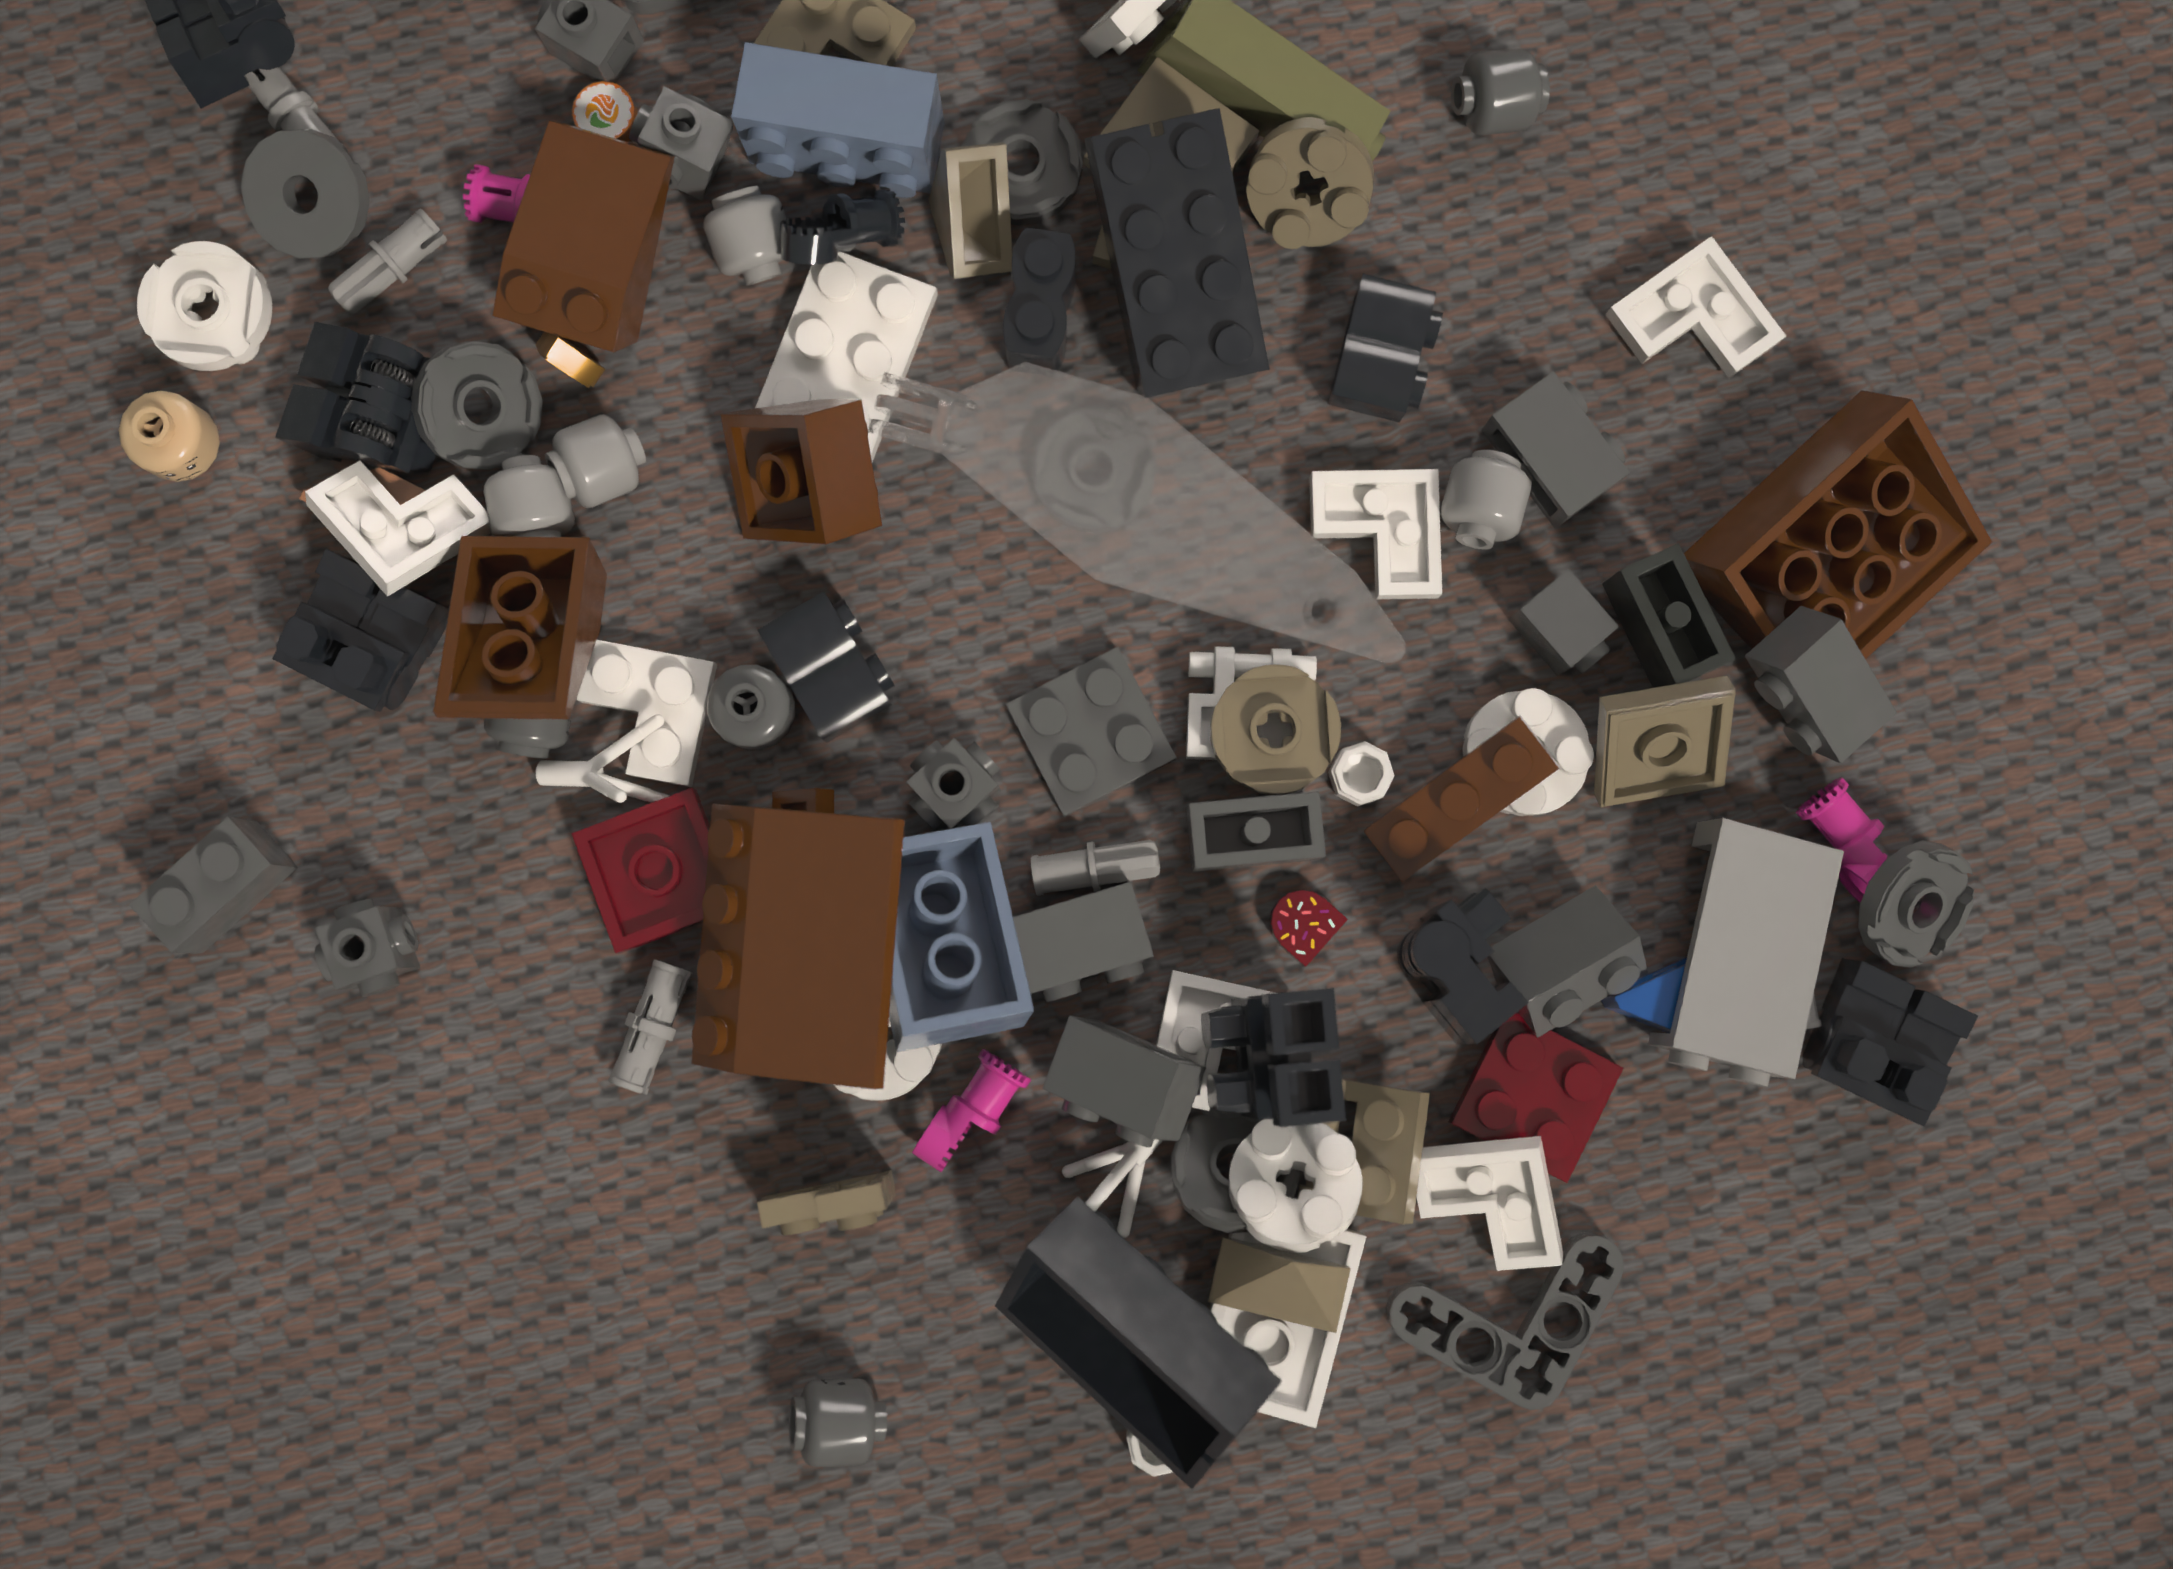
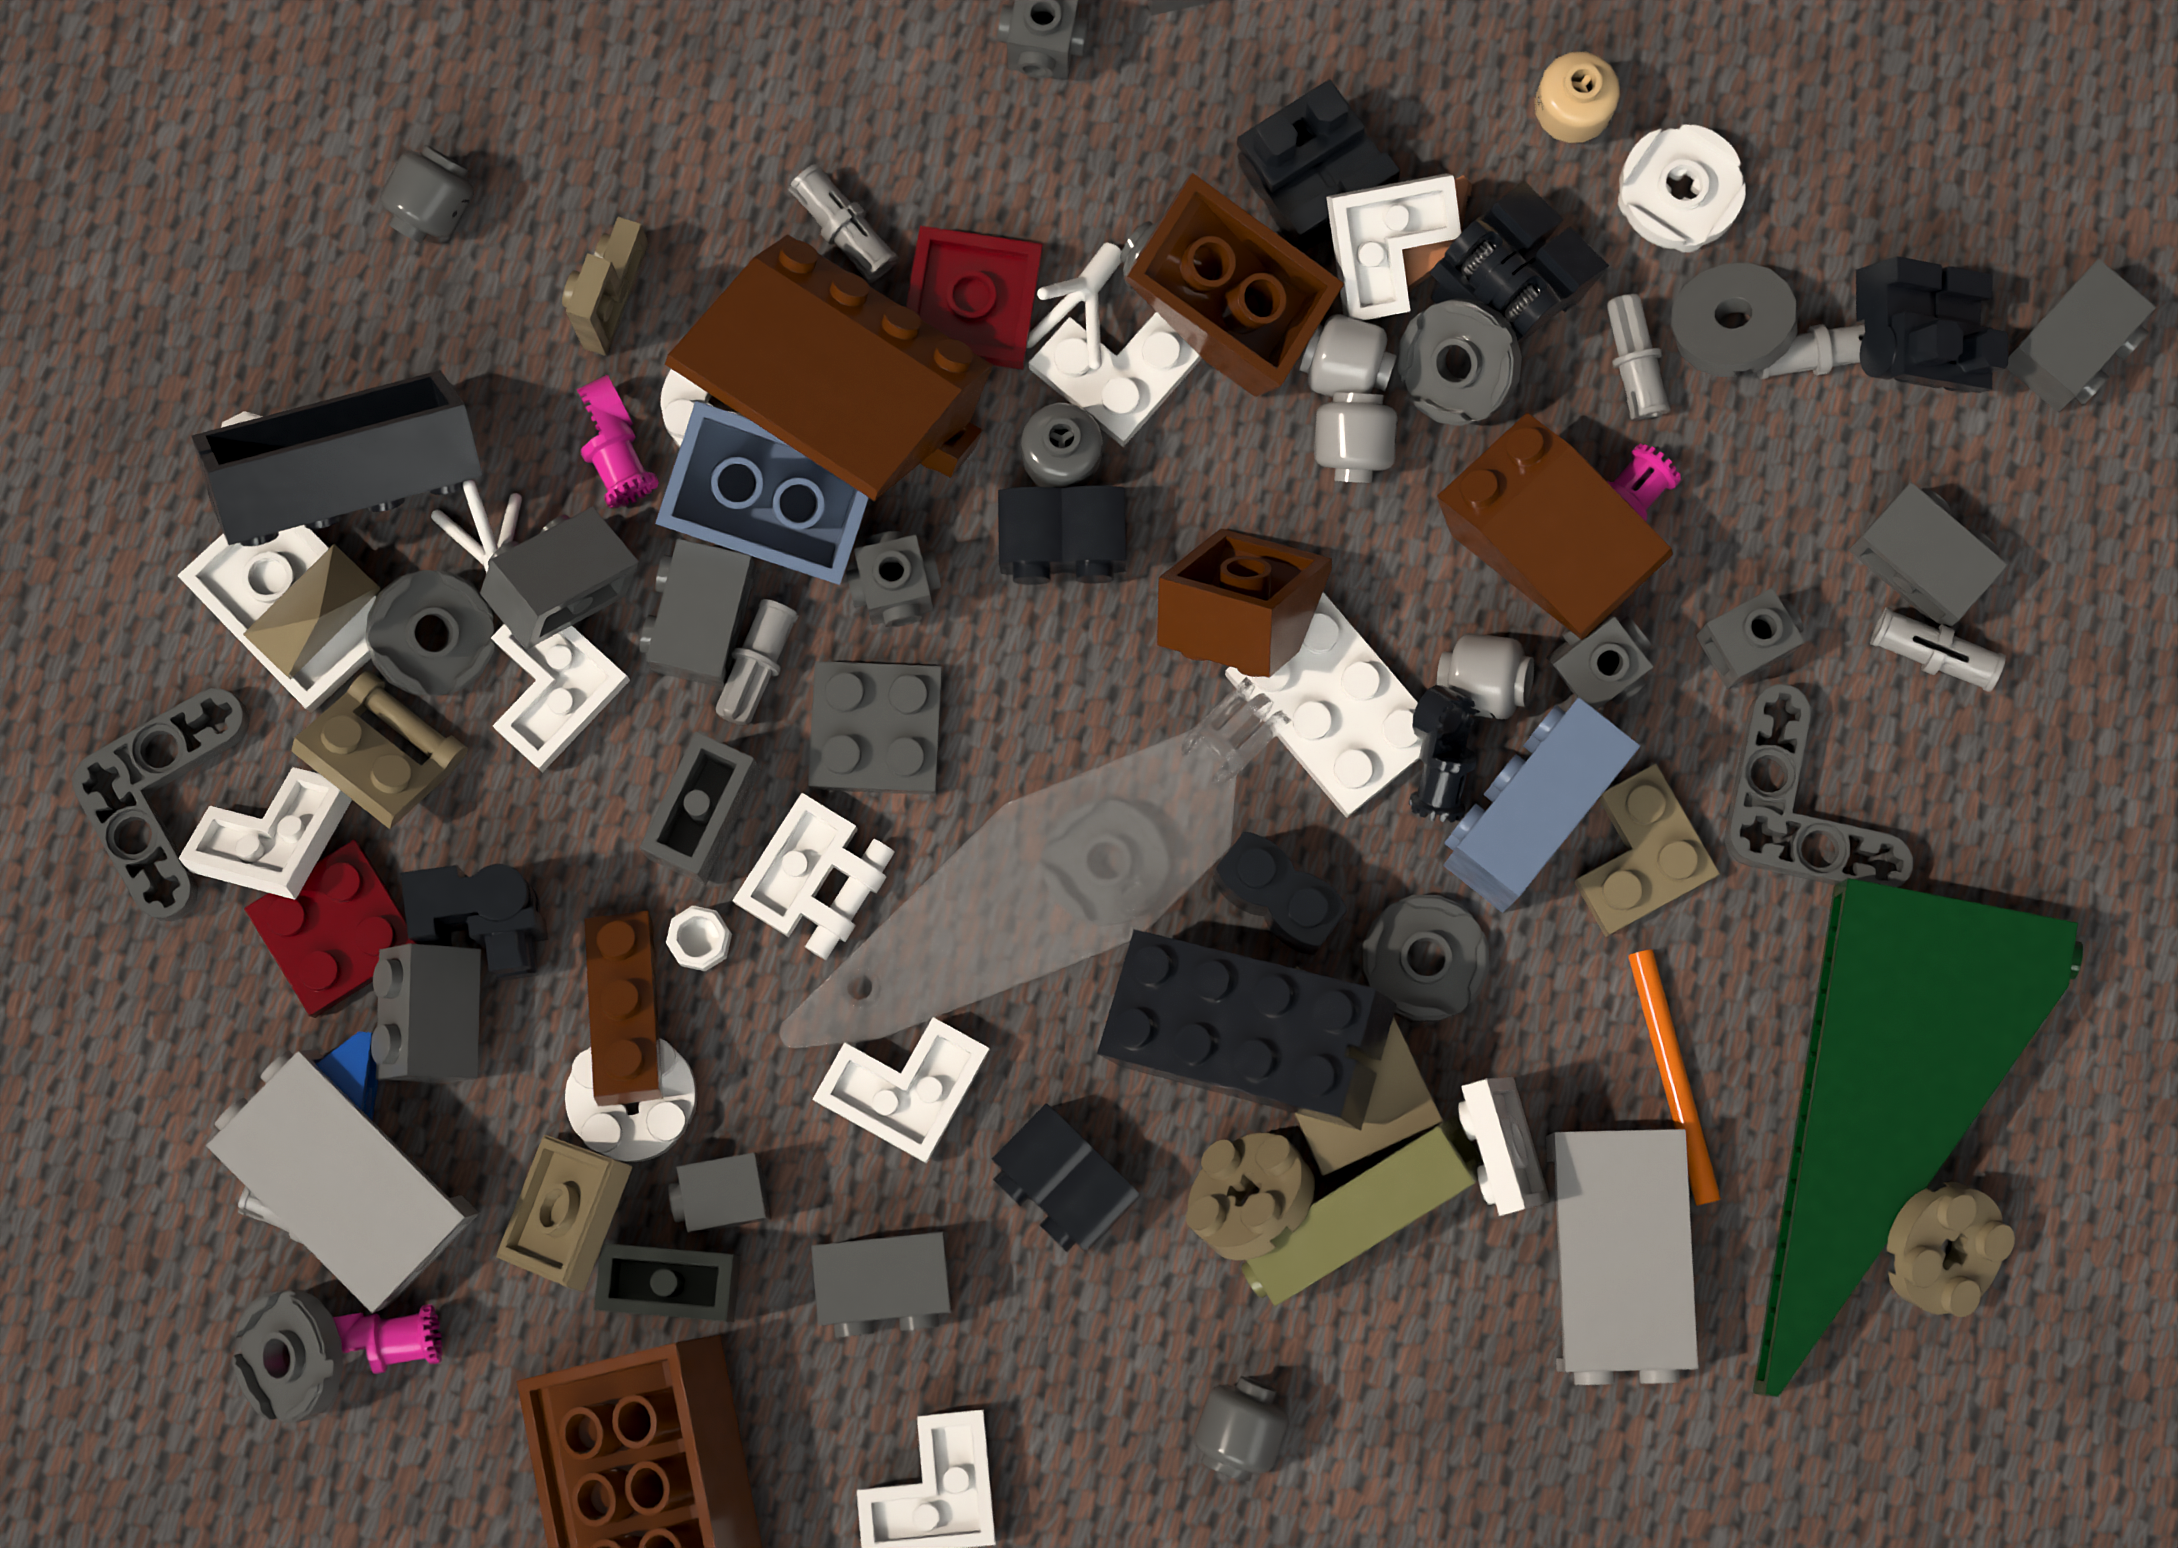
camera: 120 degrees right, 5 degrees down
(569, 359) = (1453, 460): tile -> none
(605, 110) = (1671, 615): tile -> none
(973, 209) = (1395, 883): dark tan slope -> none
(1274, 1058) = (488, 713): black hips -> none
(1299, 702) = (765, 839): dark tan plate -> none
(1304, 924) = (600, 815): dark red tile -> none
(1318, 1213) = (346, 665): white plate -> none
(1486, 499) = (873, 1188): light grey head -> none
(1820, 684) = (529, 1382): dark grey brick -> none
(1886, 1040) = (184, 1222): black hips -> none

